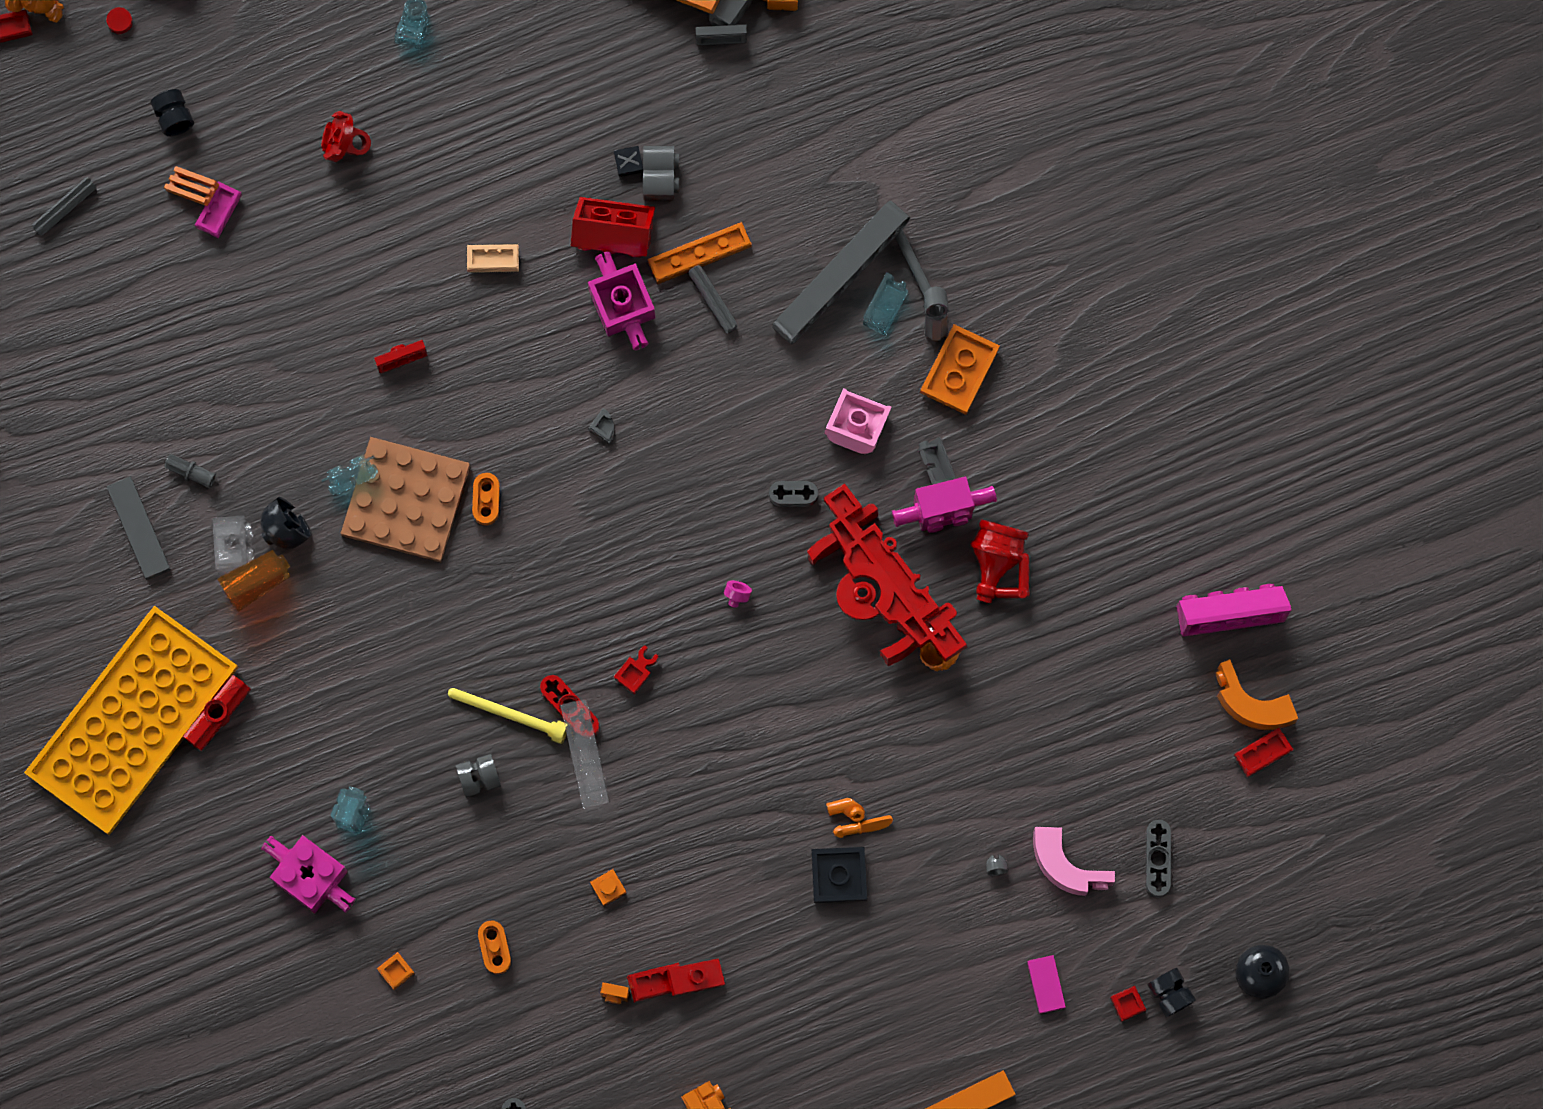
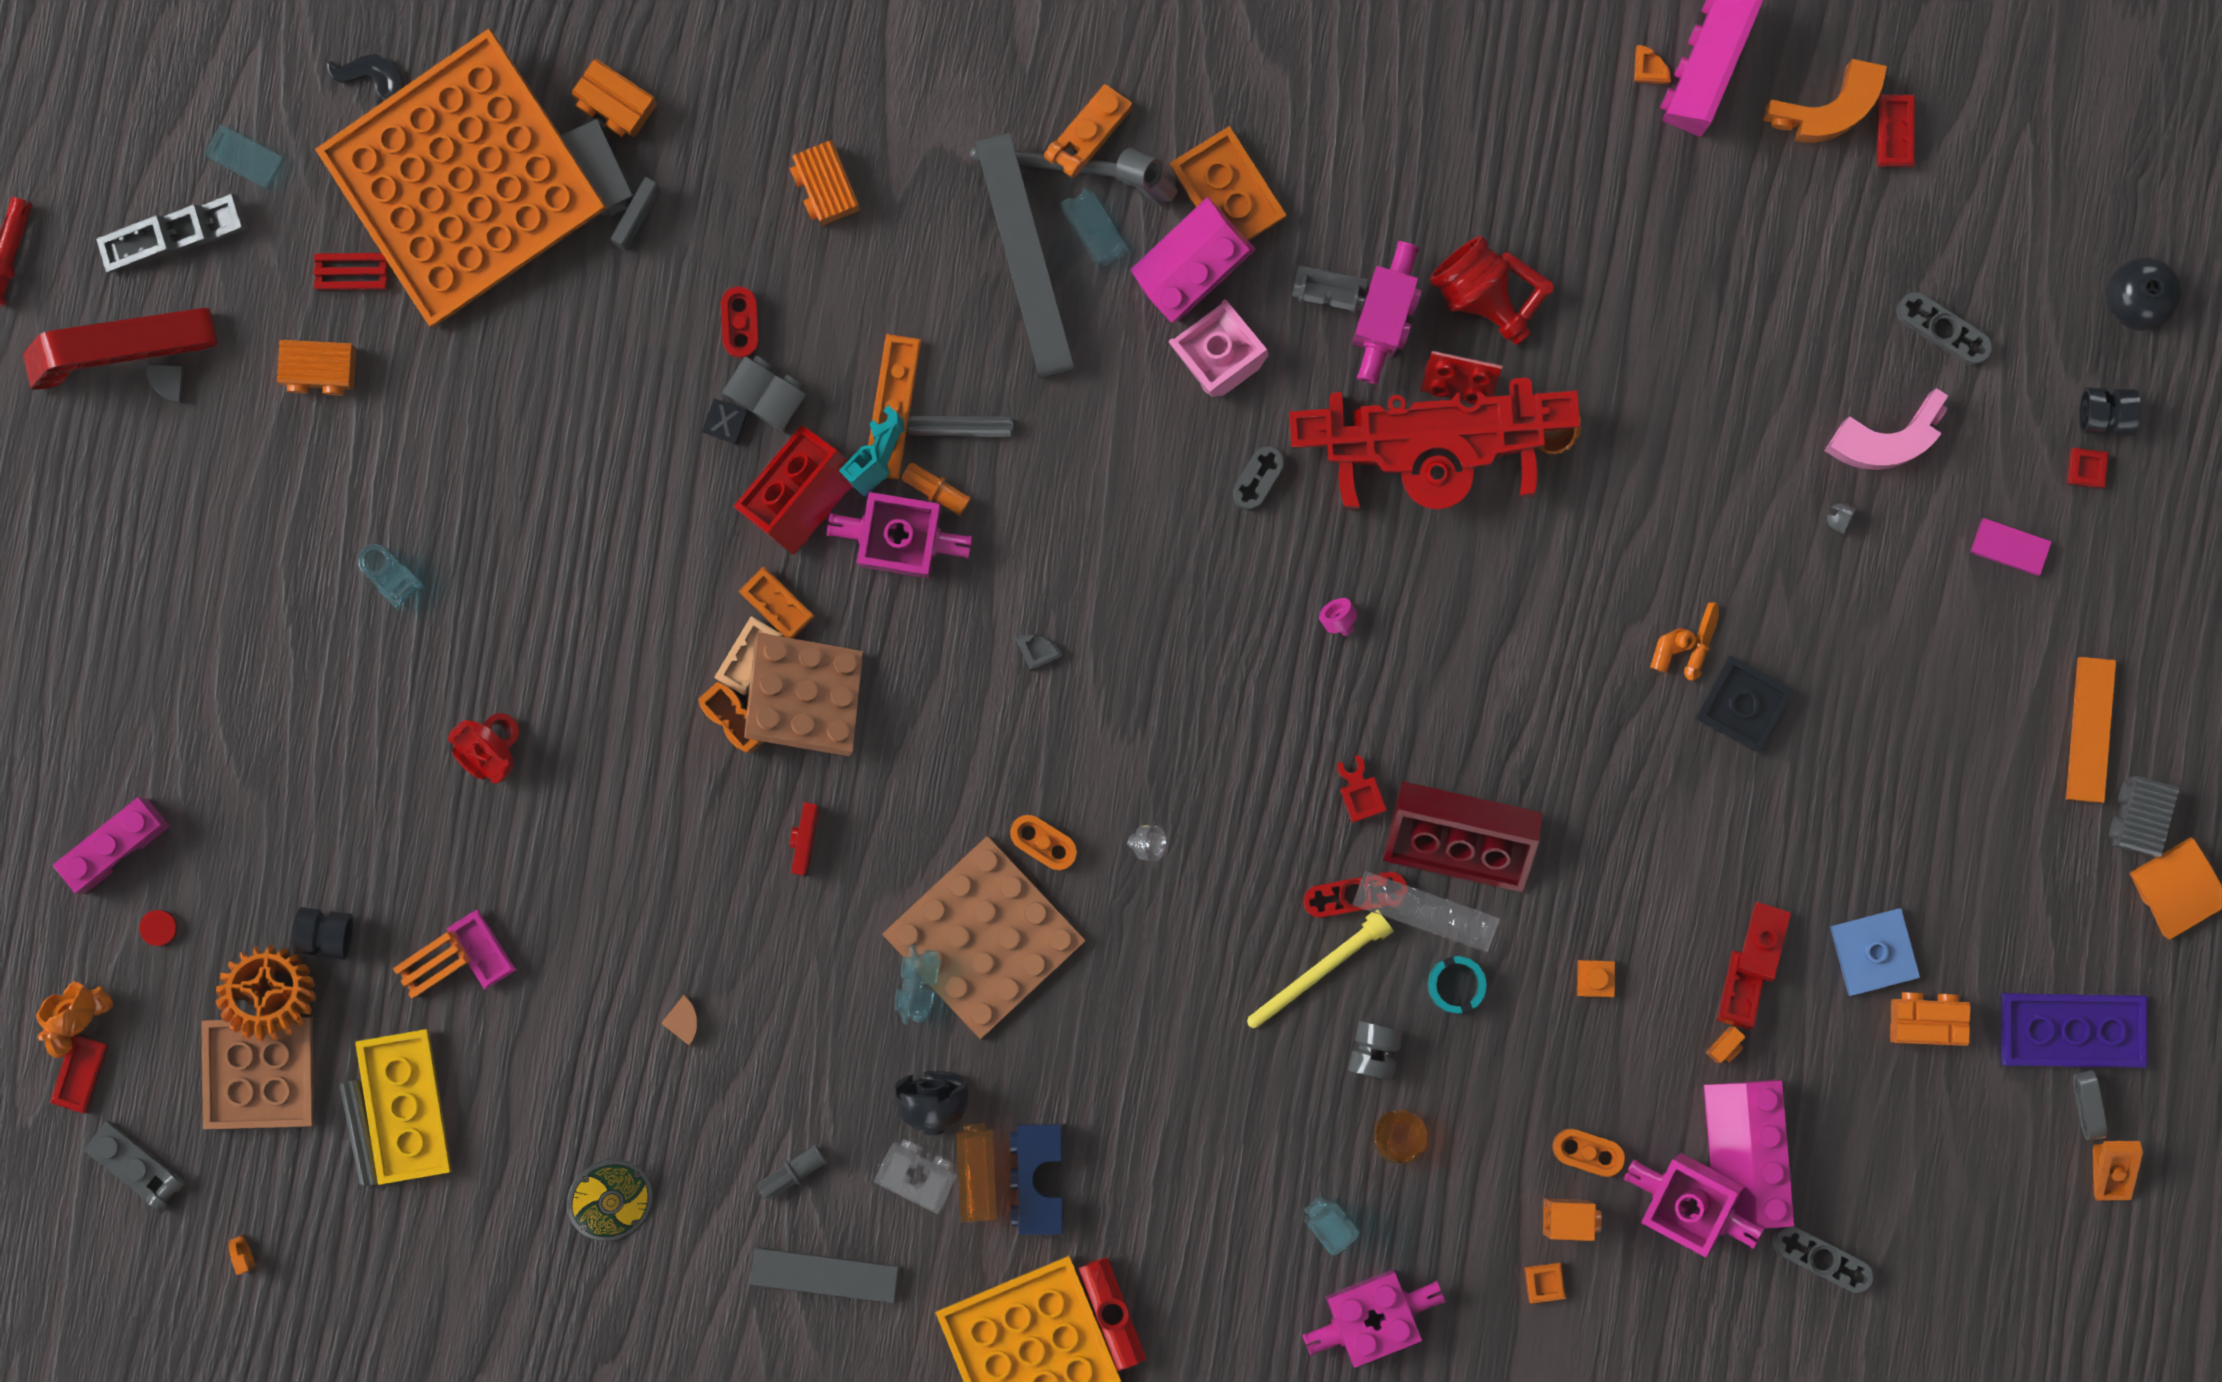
camera: 60 degrees left, 10 degrees up
(65, 126) = (256, 1080): none -> nougat plate
(95, 221) = (403, 1106): none -> yellow plate
(109, 372) = (609, 1200): none -> shield
(112, 107) = (238, 987): none -> orange gear
(245, 352) = (682, 1020): none -> nougat tile
(253, 626) = (1035, 1211): none -> dark blue arch
(433, 822) = (1400, 1136): none -> clear orange hair
(443, 957) = (1571, 1219): none -> orange brick
(451, 265) = (728, 711): none -> orange brick
(488, 300) = (803, 694): none -> nougat plate
(499, 1028) = (1671, 1209): none -> dark pink brick
(524, 561) = (1148, 842): none -> clear tile
(535, 256) = (776, 603): none -> orange plate
(549, 819) = (1432, 988): none -> teal piece
(554, 1049) = (1751, 1147): none -> dark pink slope
(646, 749) = (1463, 836): none -> dark red slope
(655, 254) = (870, 462): none -> teal piece
(665, 307) = (936, 488): none -> orange axle
(693, 134) = (739, 323): none -> red plate
(733, 1053) = (1874, 952): none -> medium blue plate
(810, 132) = (825, 183): none -> orange brick
(900, 373) = (1191, 260): none -> dark pink slope
(933, 573) = (1453, 374): none -> red hinge
(942, 265) = (1089, 130): none -> orange plate
(1204, 578) = (1650, 67): none -> orange tile

